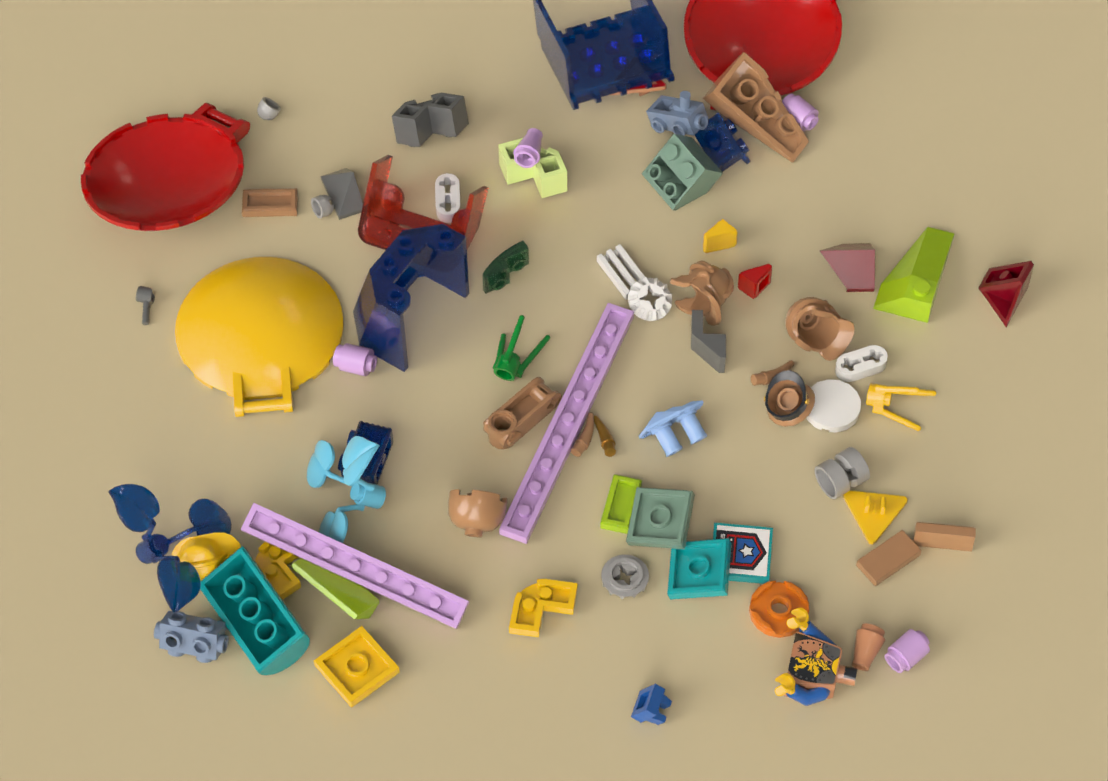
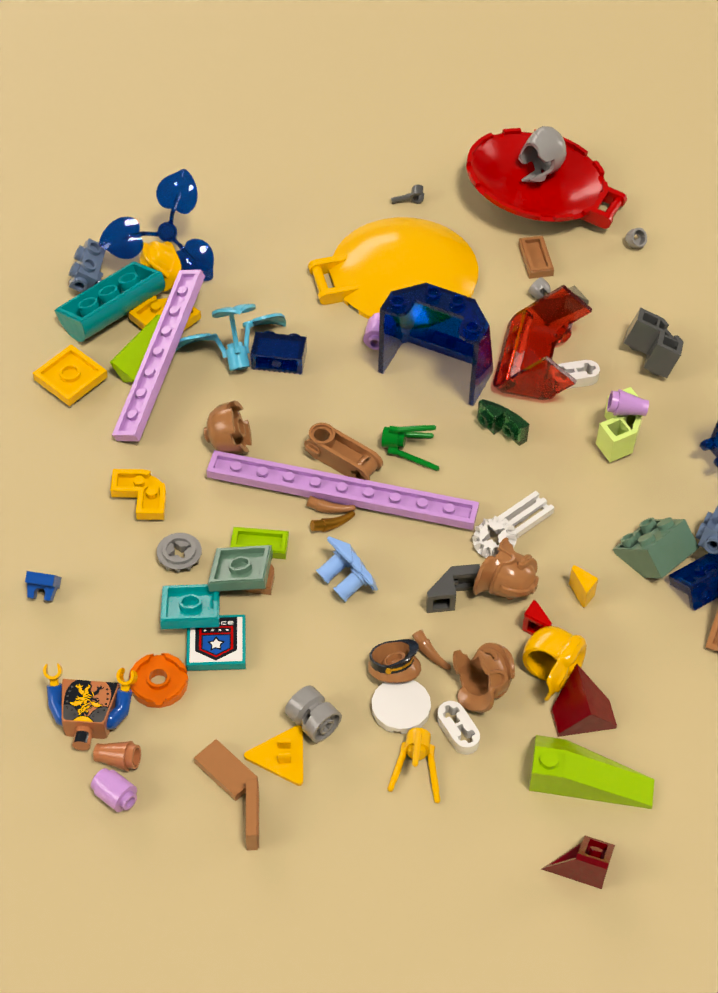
camera: 80 degrees right, 5 degrees down
(131, 154) = (546, 152): none -> light grey helmet
(800, 275) = (553, 655): none -> yellow piece

